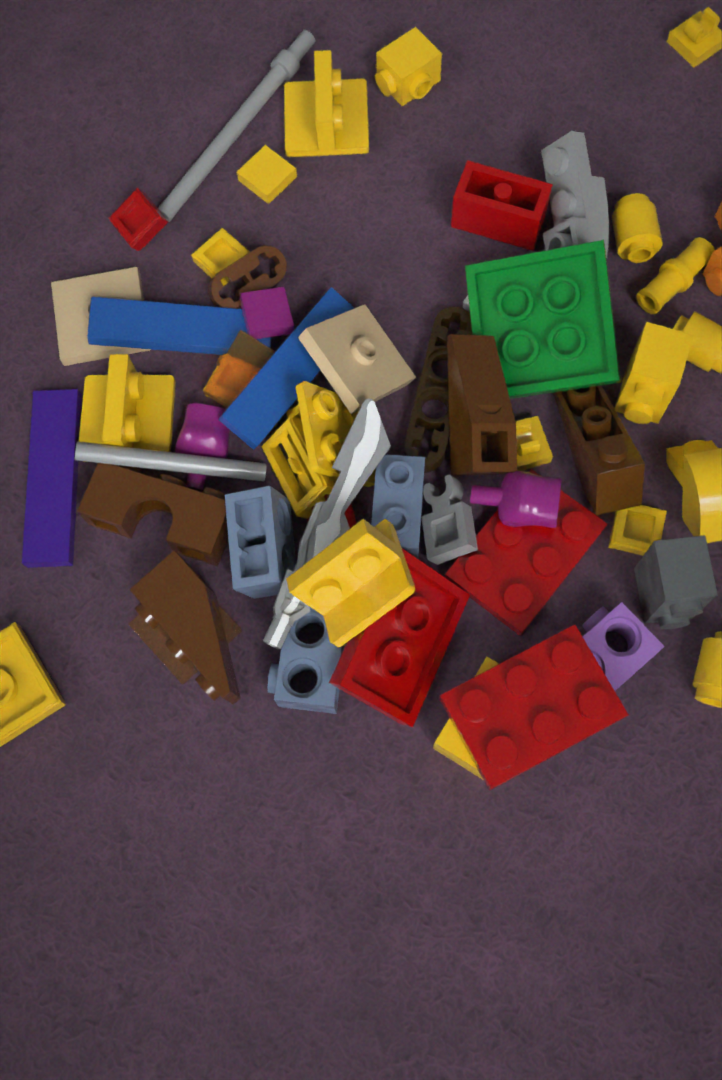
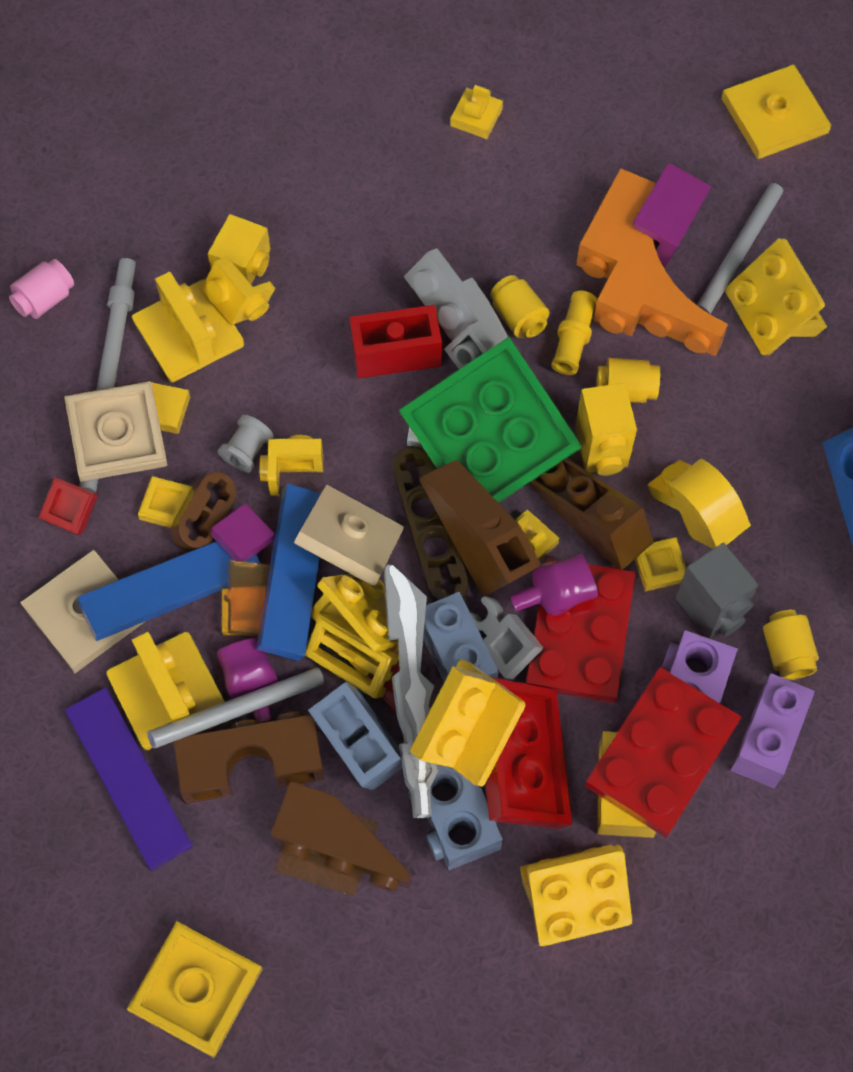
camera: 35 degrees left, 5 degrees down
(211, 173) = (115, 431): none -> tan plate
(222, 26) = (41, 288): none -> bright pink brick
(317, 236) = (245, 443): none -> light grey bush
(349, 264) = (293, 454): none -> yellow bracket
(378, 794) = (578, 894): none -> yellow bracket
(379, 100) = (234, 294): none -> yellow bracket
(657, 743) = (772, 731): none -> medium lavender brick

